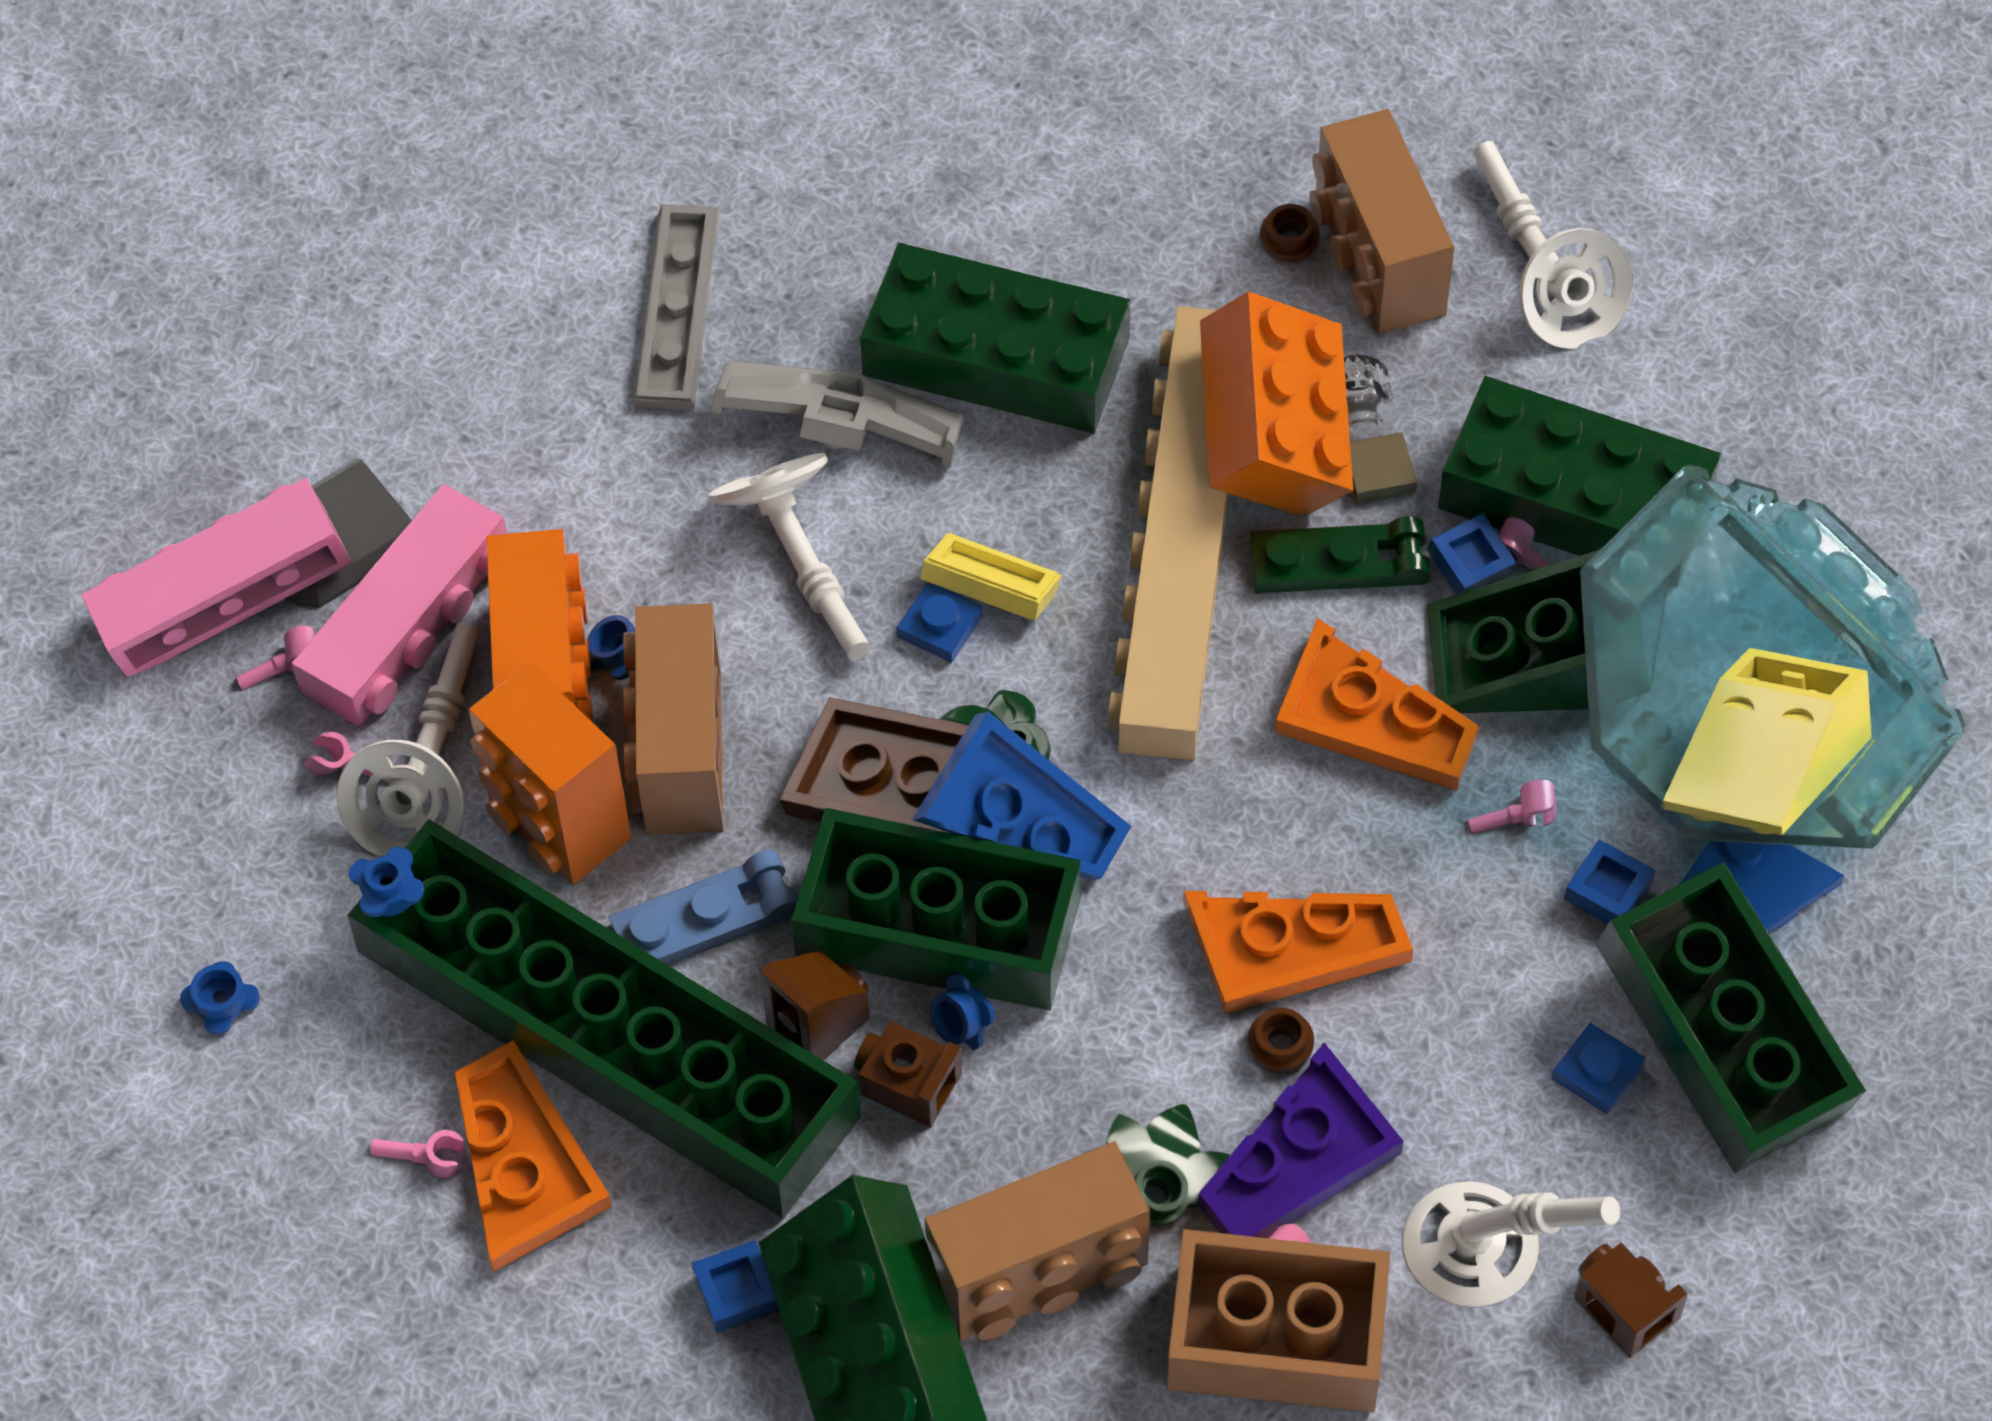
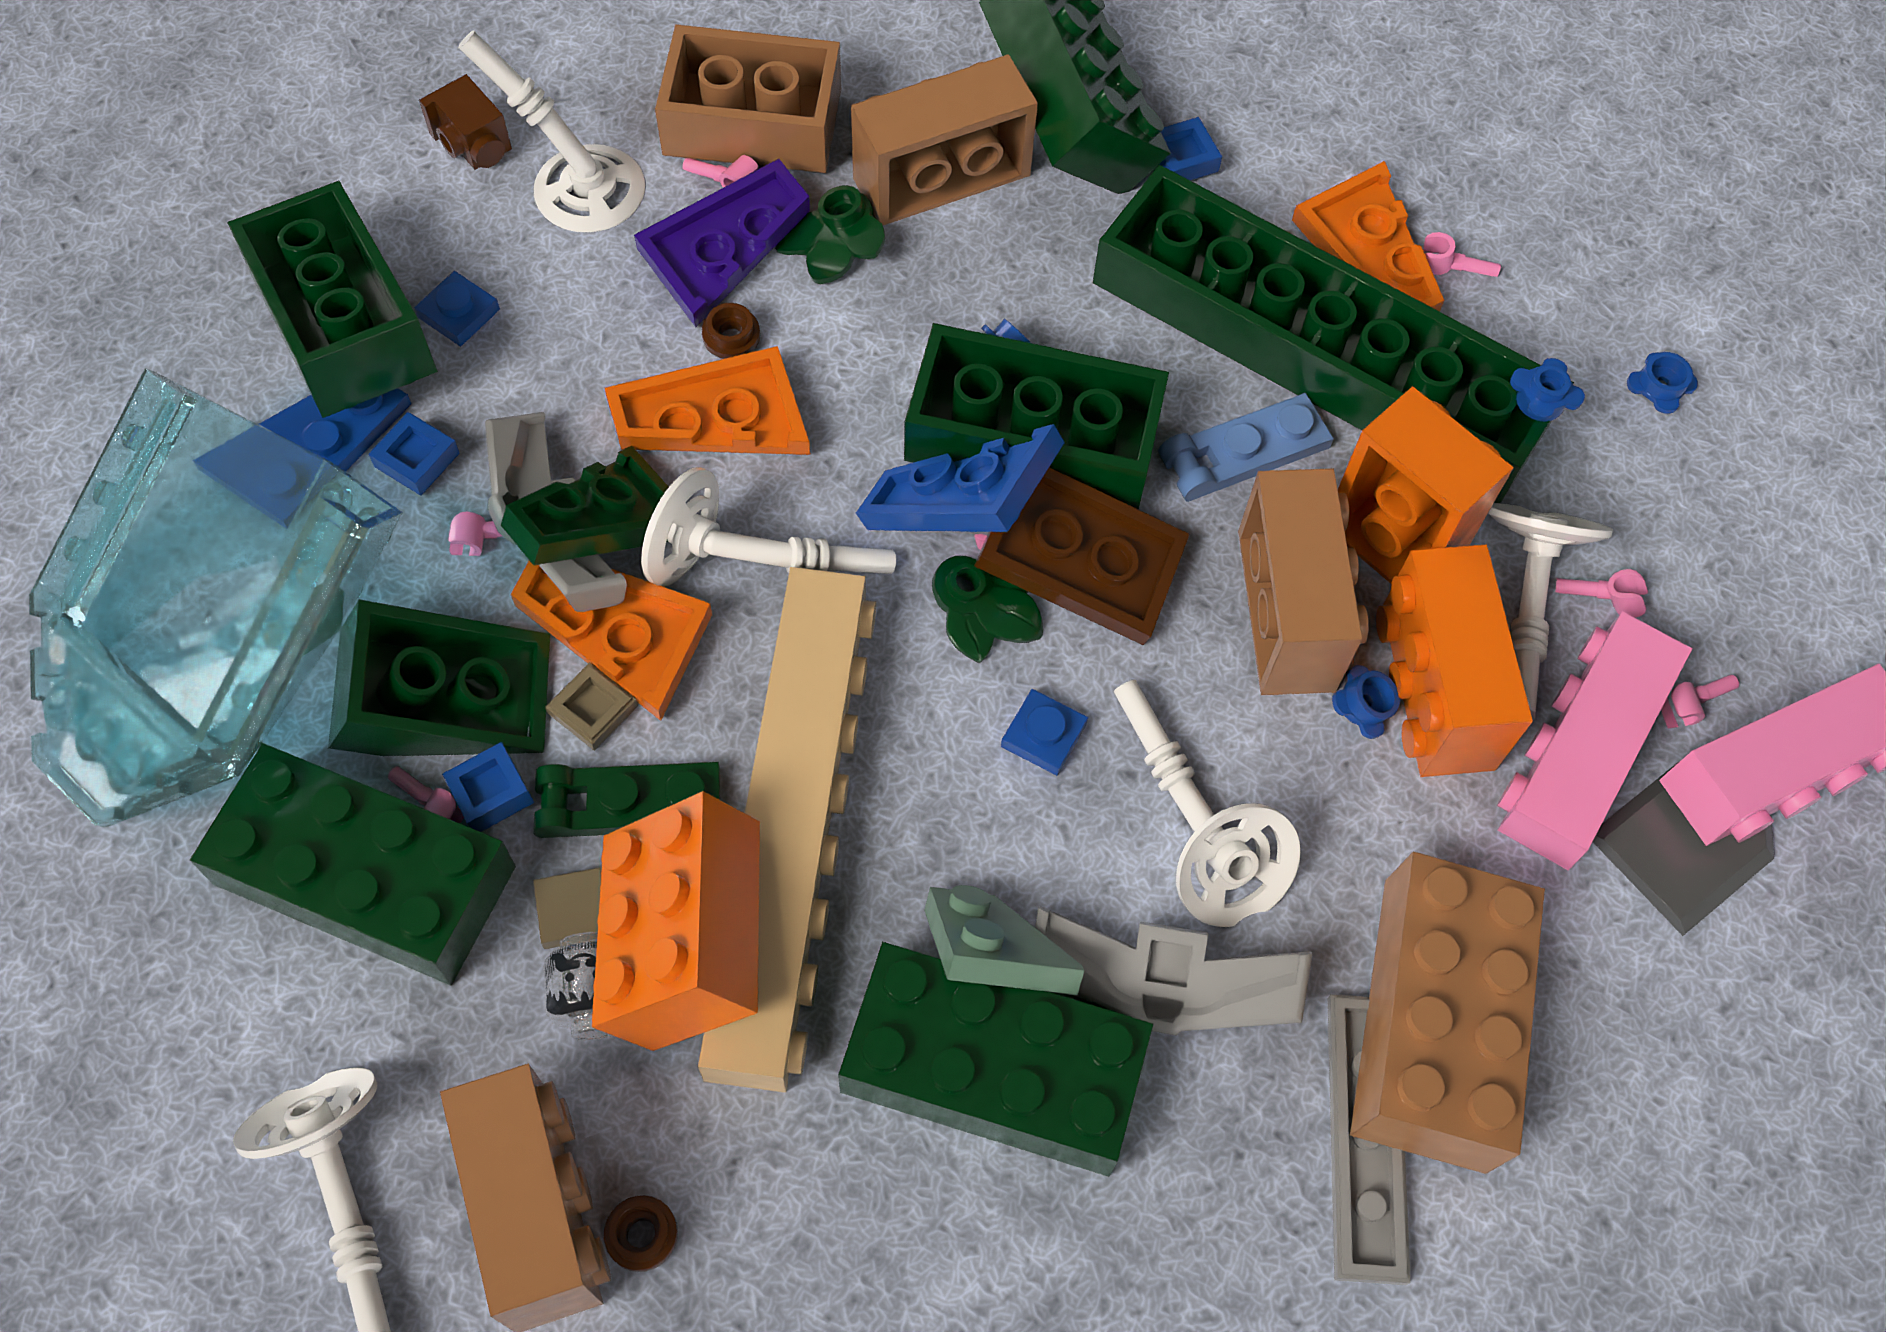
camera: 175 degrees right, 5 degrees up
(595, 368) = (1450, 1014): none -> medium nougat brick
(814, 1001) = (1147, 320): reddish brown slope -> none
(912, 1090) = (1053, 300): reddish brown brick -> none
(990, 576) = (993, 773): light yellow tile -> none
(997, 409) = (994, 945): none -> sand green wing
(1293, 761) = (700, 535): none -> white dish
(1388, 637) = (591, 706): none -> dark tan tile
(1394, 784) = (590, 516): none -> dark green wing
(1460, 803) = (521, 467): none -> light grey plate
(1771, 741) = (225, 507): light yellow slope -> none

